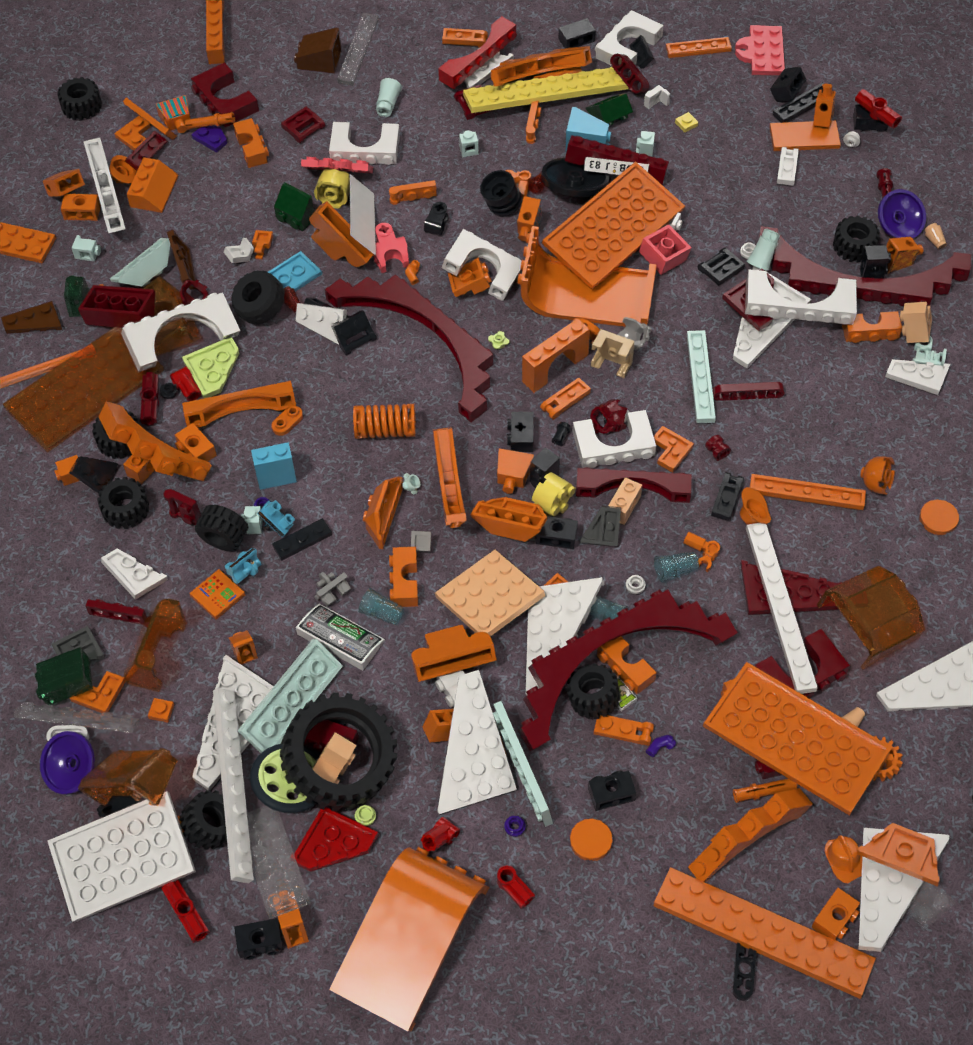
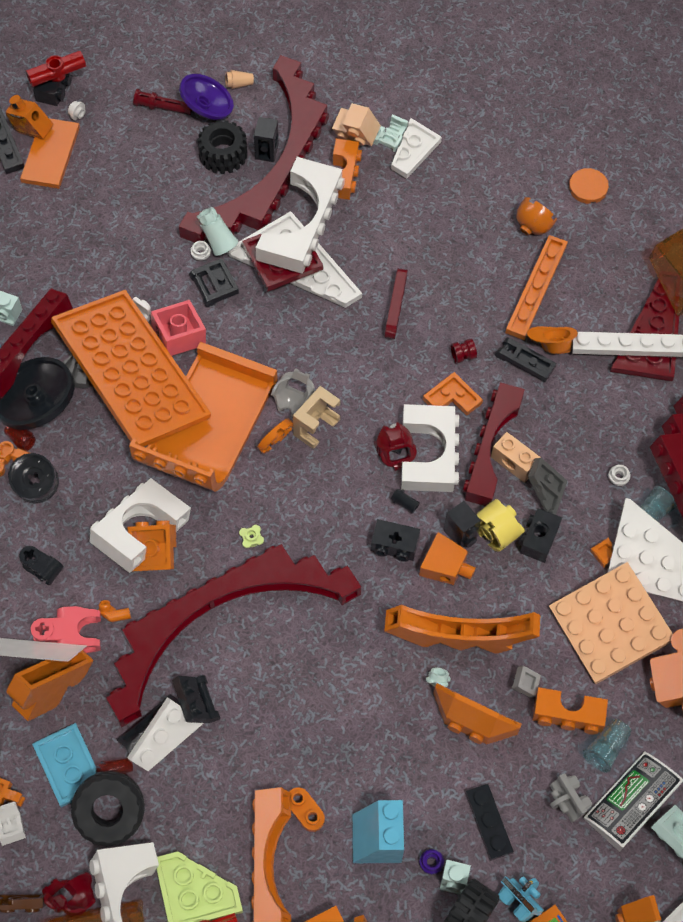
camera: 80 degrees left, 5 degrees up
(275, 519) = (462, 844): medium azure hips -> none
(373, 425) = (347, 687): orange piece -> none
(510, 518) = (519, 572): orange wedge -> none
(529, 216) = (82, 458): orange torso -> none
(565, 398) = (357, 483): orange plate -> none
(570, 340) = (298, 457): orange arch -> none
(608, 166) = (36, 348): white sticker -> none
(675, 565) = (606, 429): clear light blue plant -> none
(701, 377) = (362, 342): light aqua plate -> none
(711, 548) = (589, 393): orange bar -> none
(787, 166) = (90, 180): white plate -> none
(902, 252) = (256, 107): orange torso -> none

